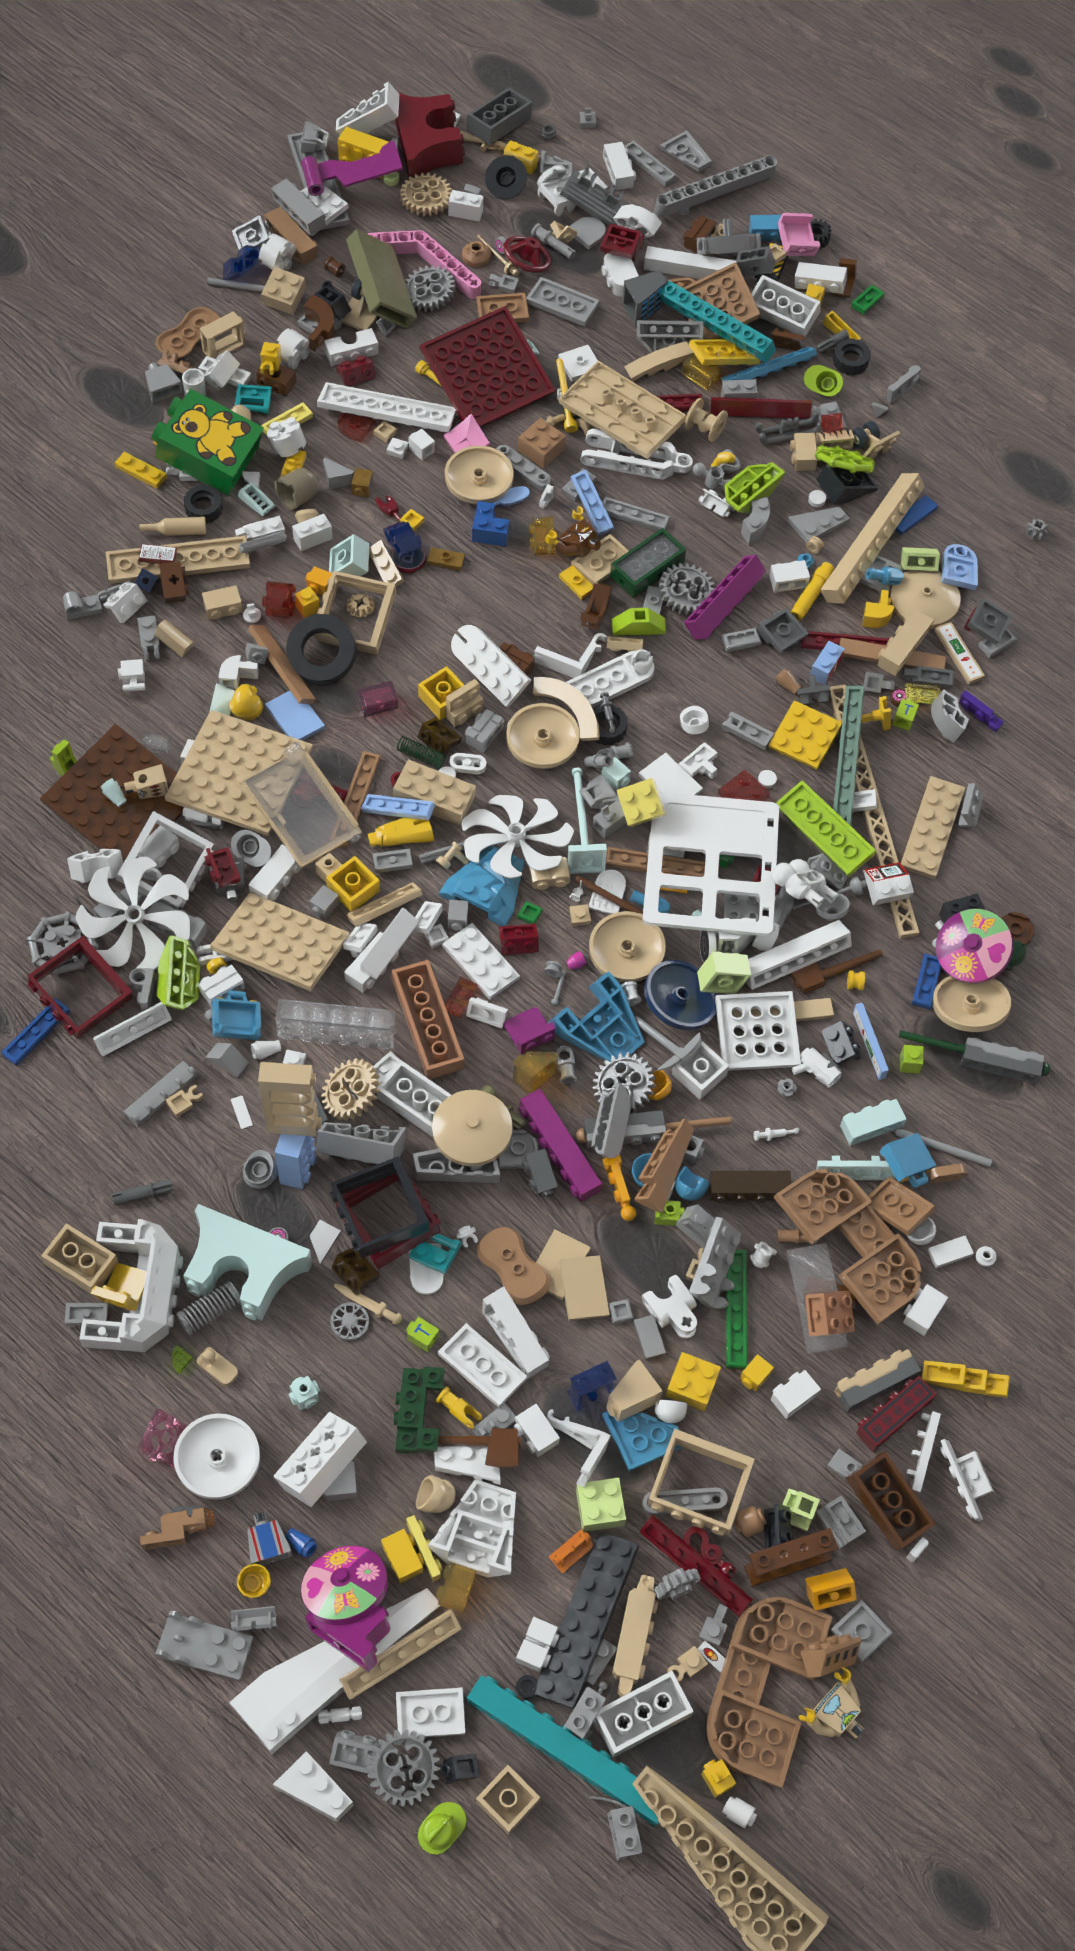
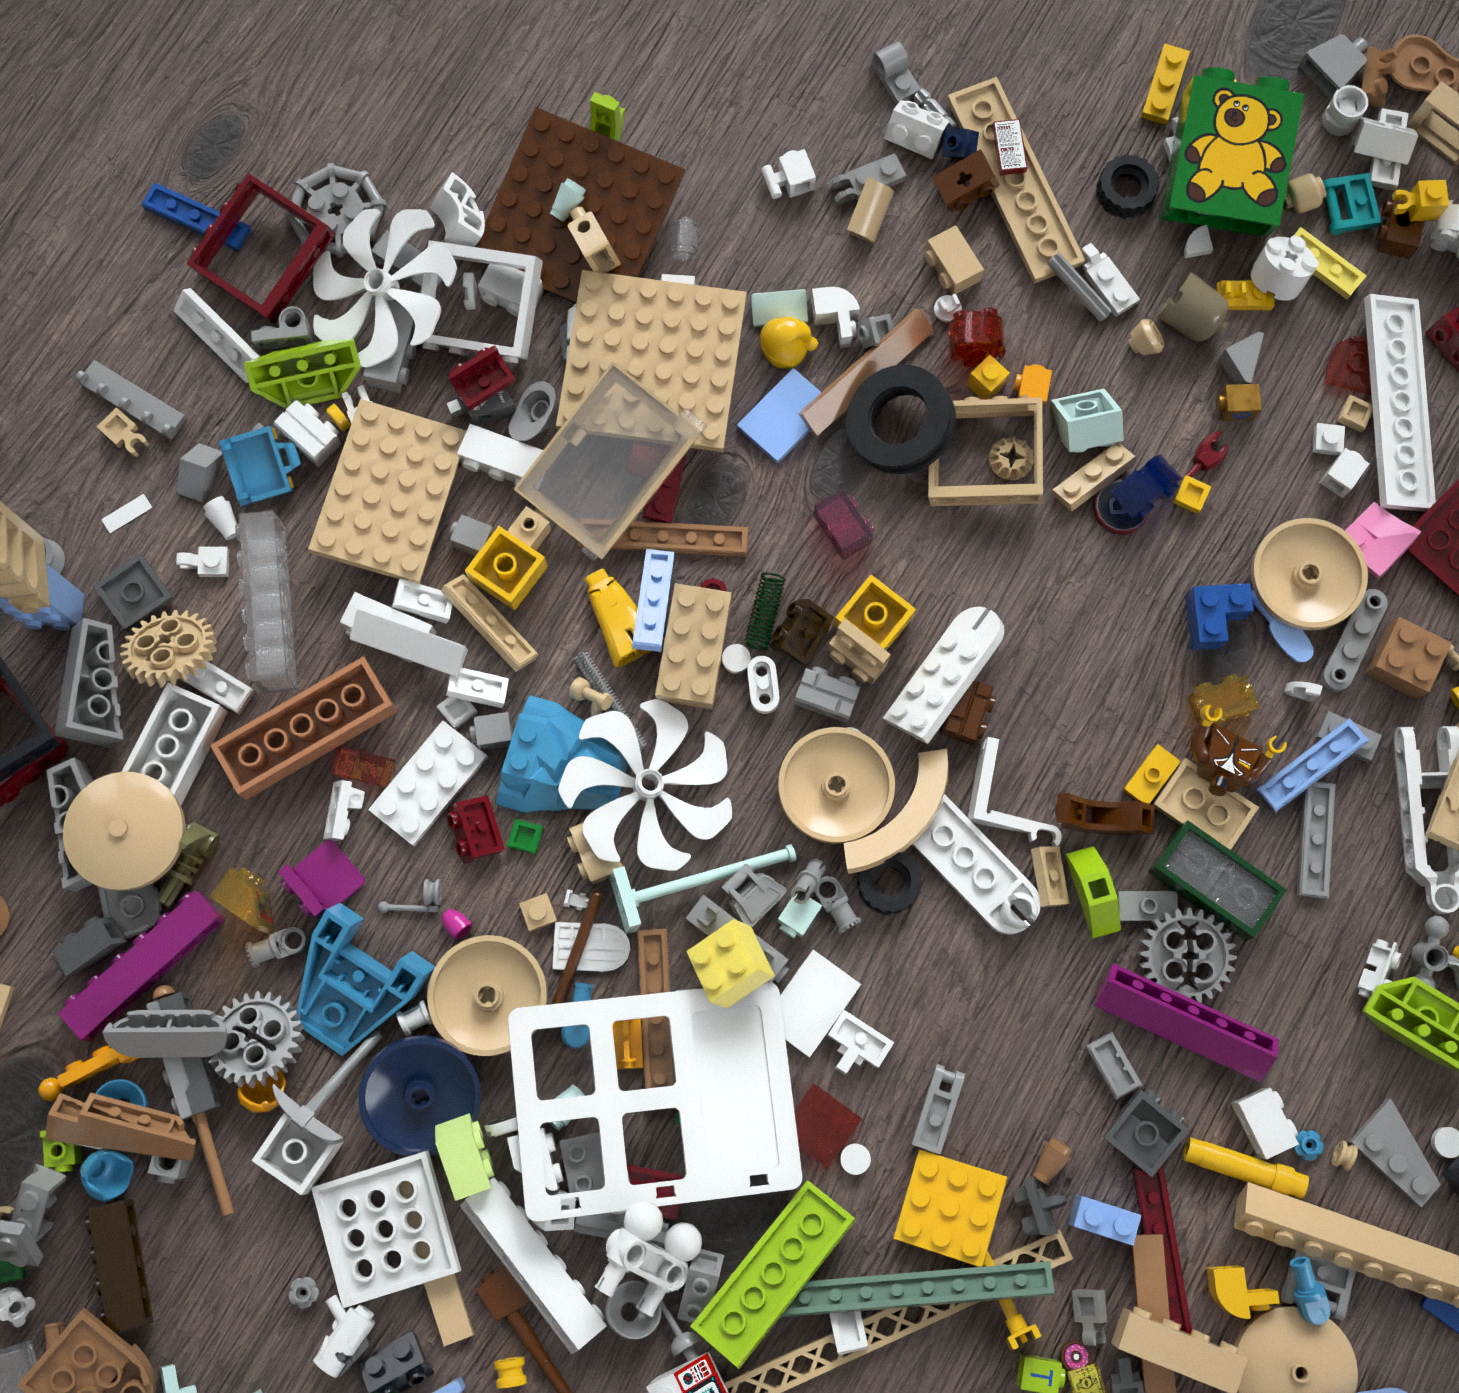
camera: 80 degrees right, 15 degrees up
(178, 526) = (1074, 163): tan piece -> none
(252, 488) = (1170, 239): light aqua slope -> none
(312, 532) = (1120, 353): white brick -> none
(392, 861) = (566, 615): light grey plate -> none
(446, 559) = (1136, 563): pearl gold plate -> none
(606, 705) = (903, 876): dark grey piece -> none
(694, 720) = (934, 1018): white hat -> none
(756, 524) = (1361, 1049): light grey brick -> none
(769, 1134) = (222, 1287): white piece -> none
(920, 559) = (1367, 1349): yellowish green brick -> none

